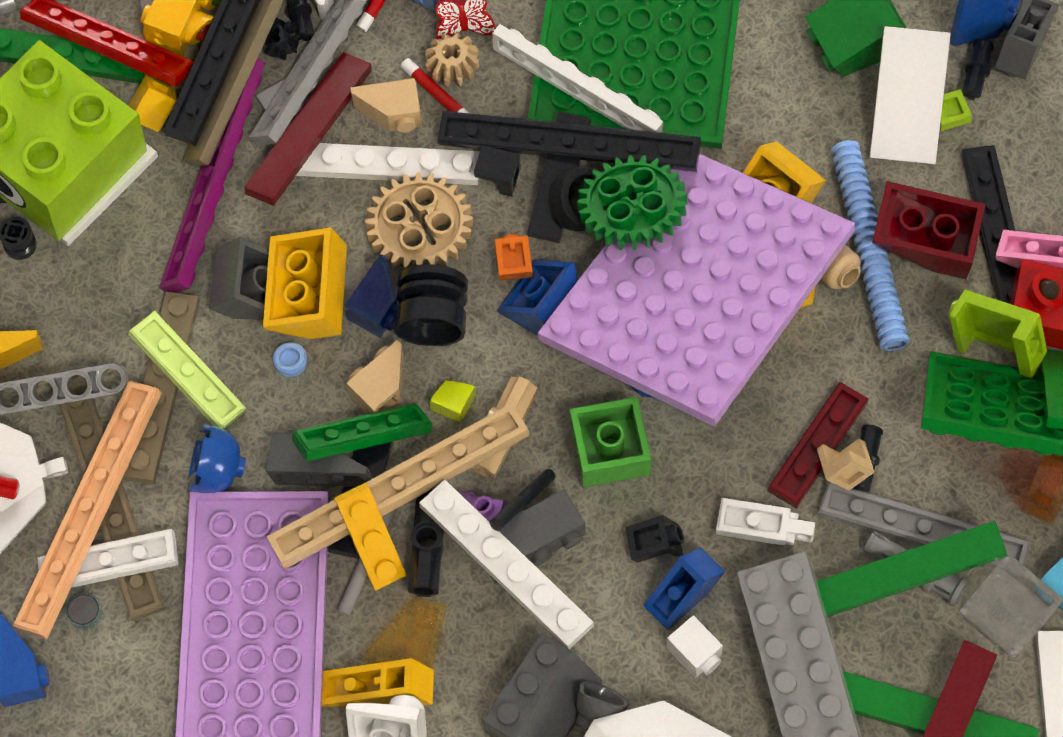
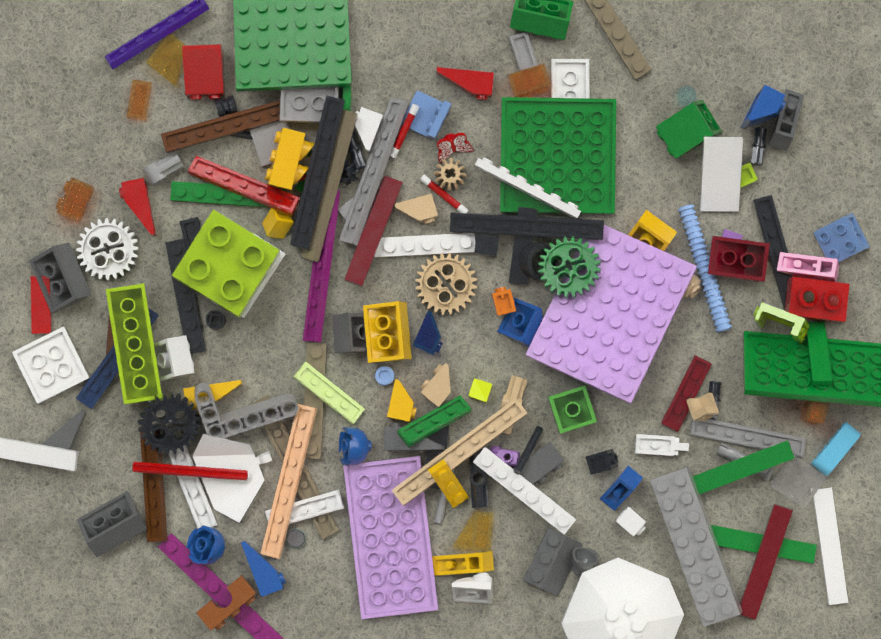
camera: 15 degrees left, 20 degrees up
(308, 400) = (401, 404): none -> yellow slope
(431, 305) = (461, 339): black wheel -> none

